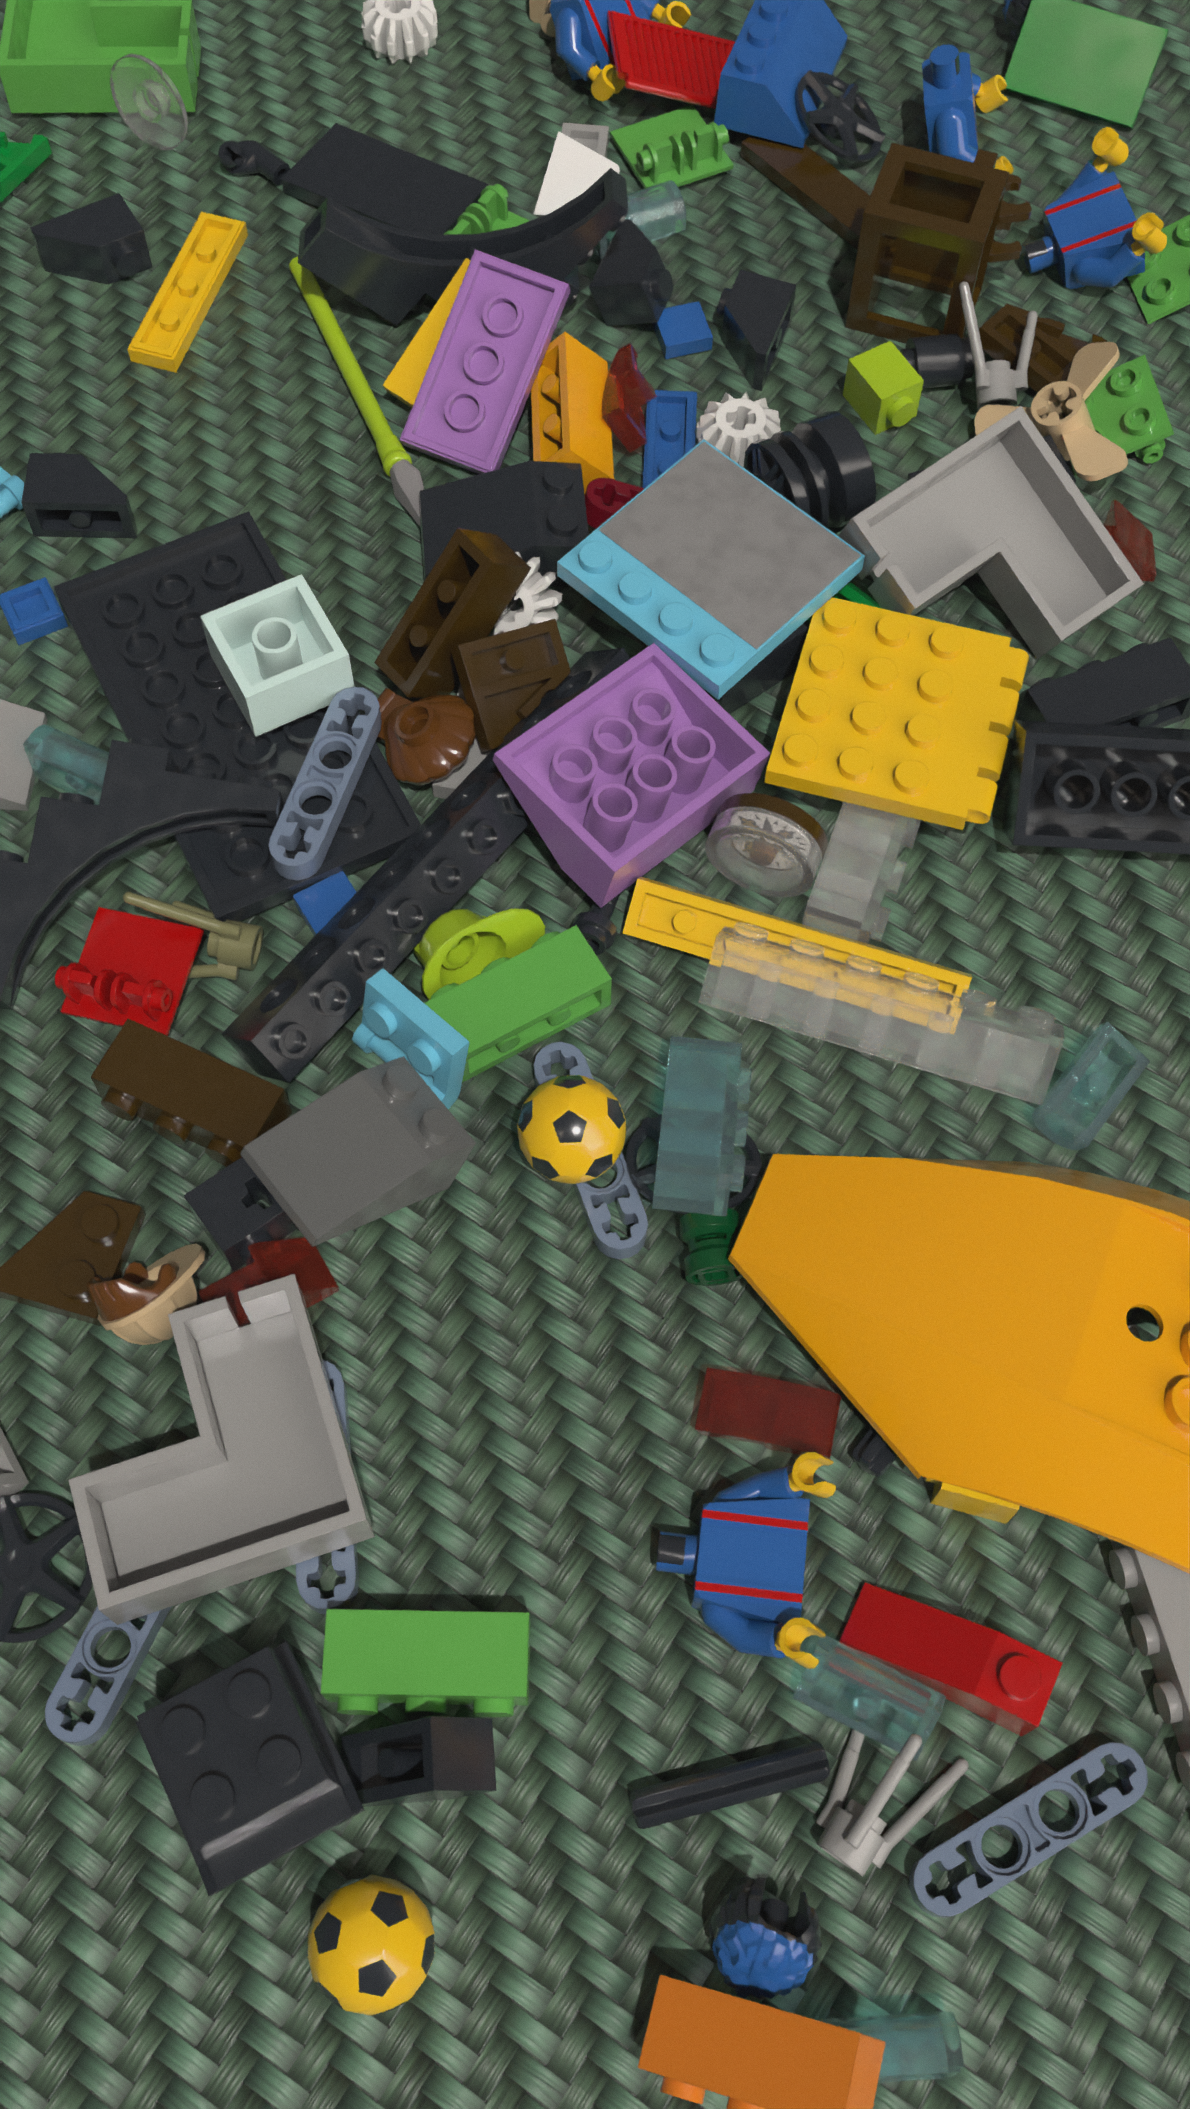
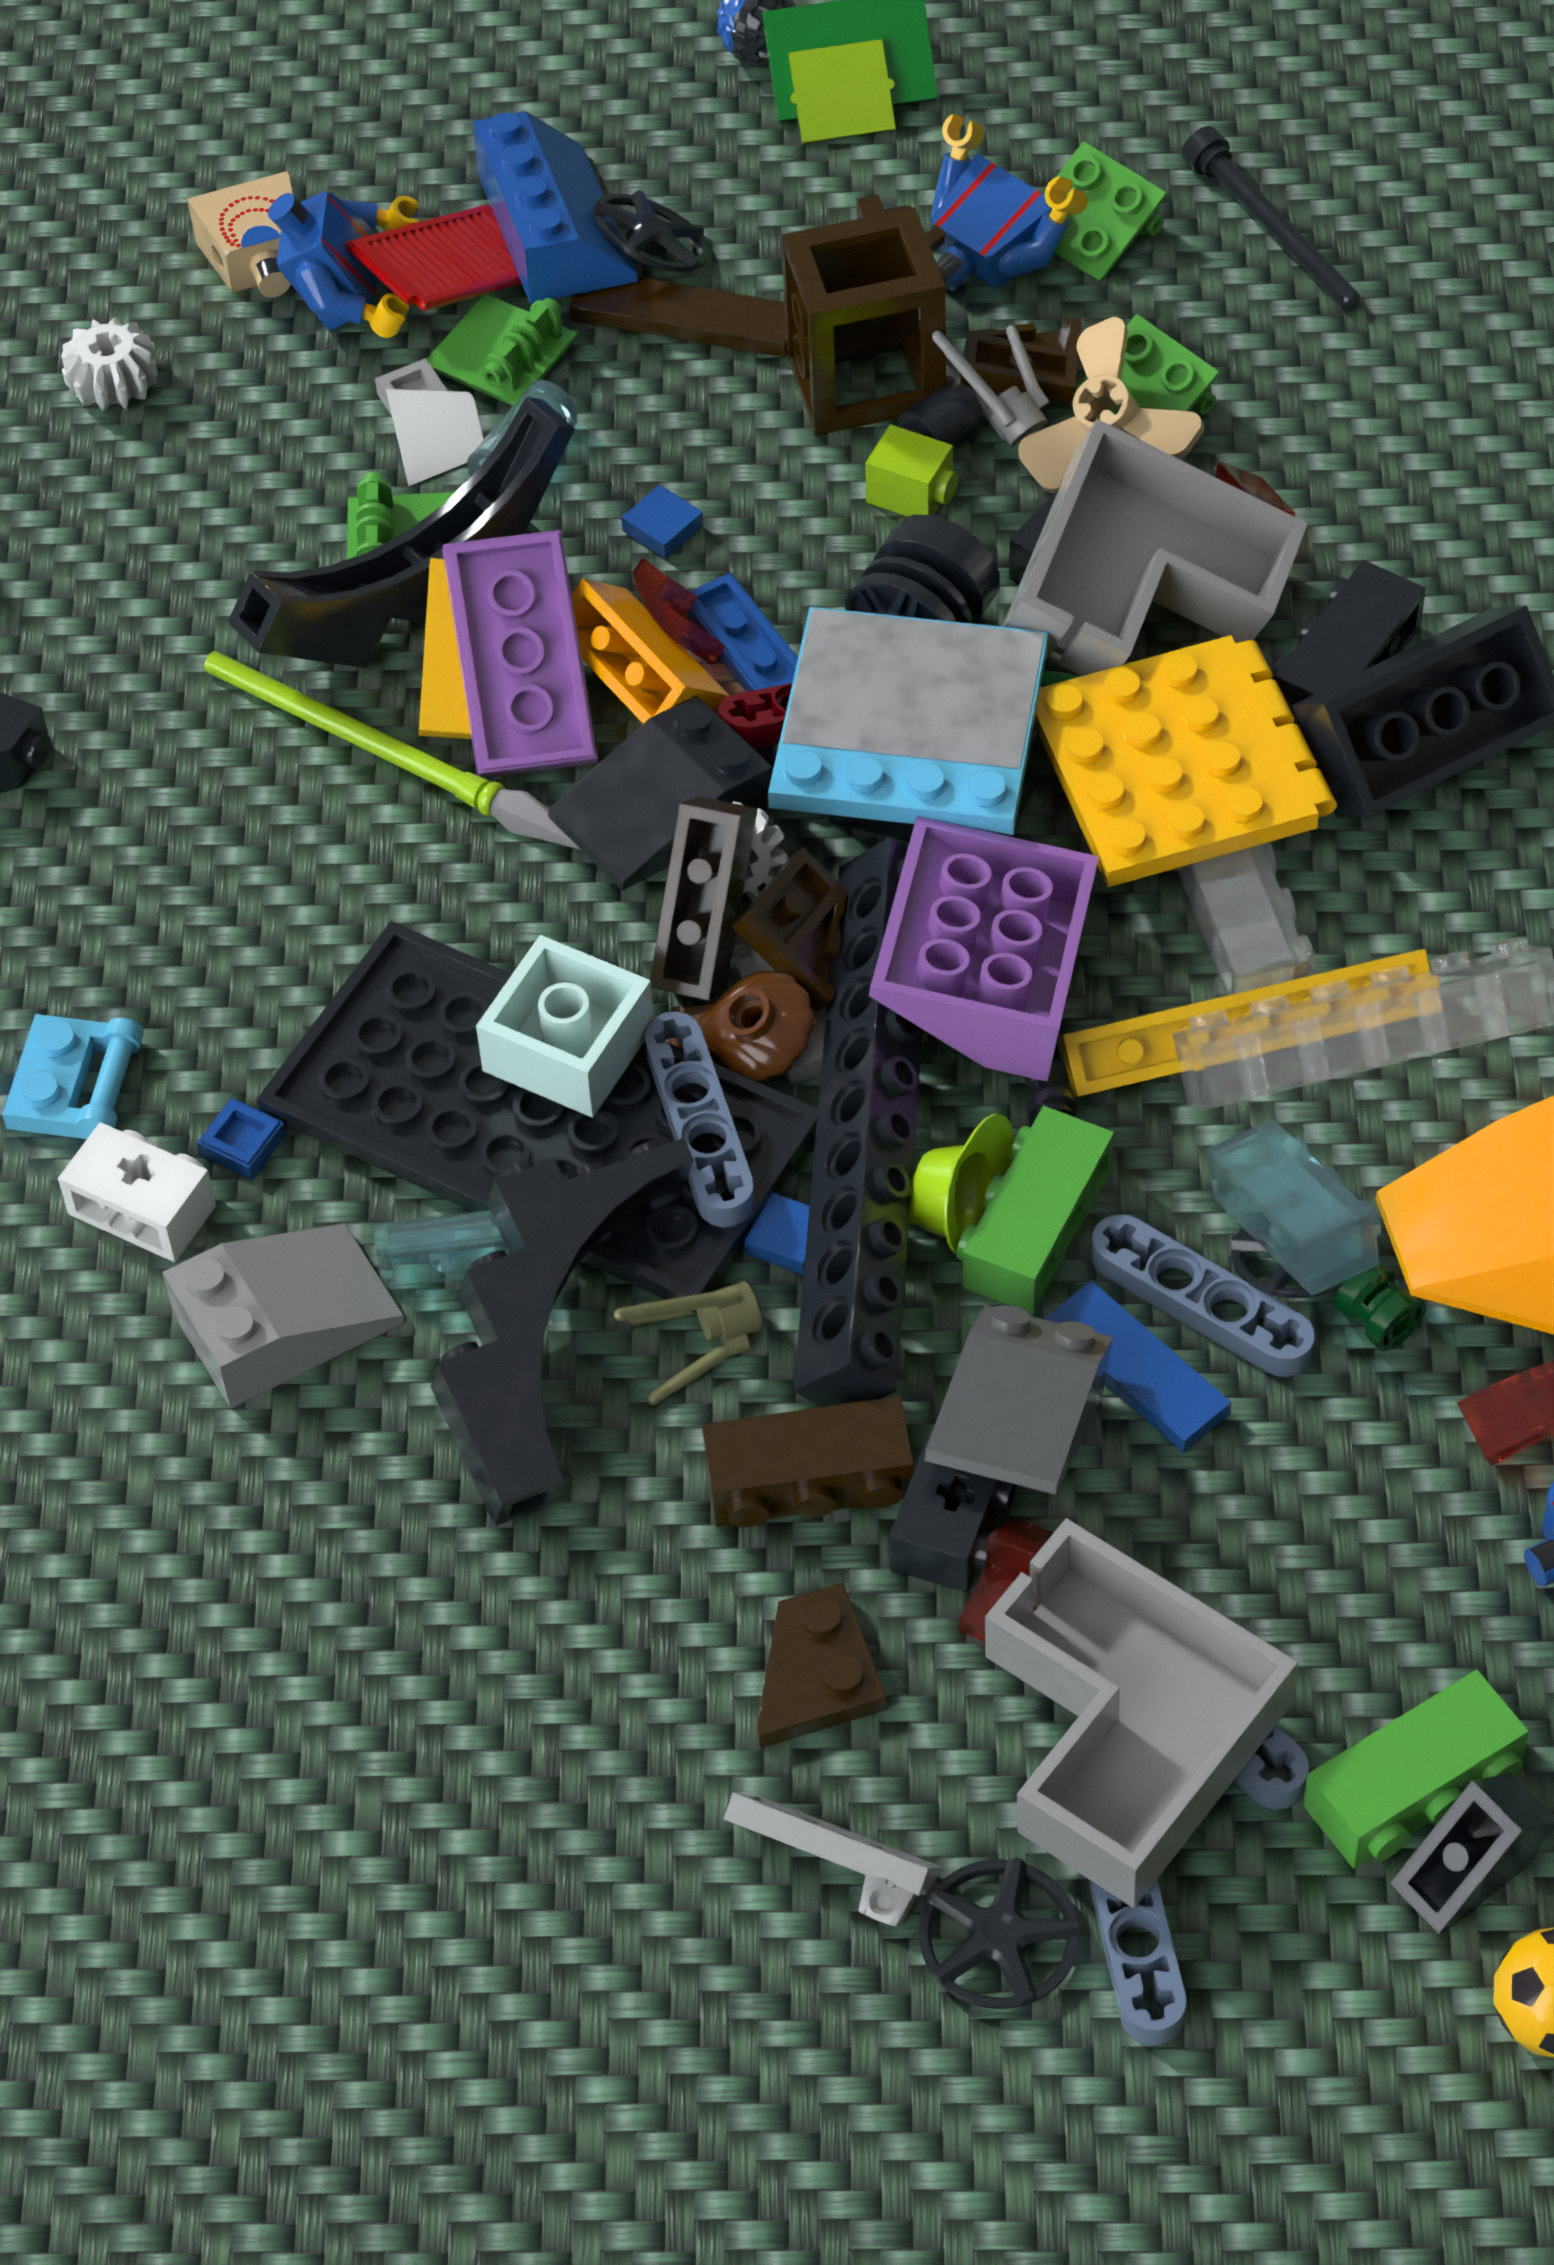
camera: 30 degrees left, 10 degrees down
(74, 499) = (200, 1005): black slope -> none
(130, 970) = (650, 1392): red hinge -> none
(141, 1300) = (928, 1640): piece -> none
(187, 292) = (119, 749): yellow tile -> none
(248, 1766) = (1343, 1928): black piece -> none
(252, 158) = (70, 579): black arm -> none
(381, 182) = (222, 535): black tile -> none
(402, 1025) = (976, 1275): medium azure plate -> none
(497, 1177) = (1148, 1371): none -> blue tile
(571, 1129) = (1193, 1269): yellow piece -> none
(631, 279) = (589, 500): black slope -> none
(737, 424) = (803, 582): white gear -> none
(756, 322) = (735, 478): black slope -> none
(766, 845) = (1155, 940): clear piece -> none
(950, 104) = (768, 176): blue torso -> none
(1060, 84) = (842, 91): none -> lime piece

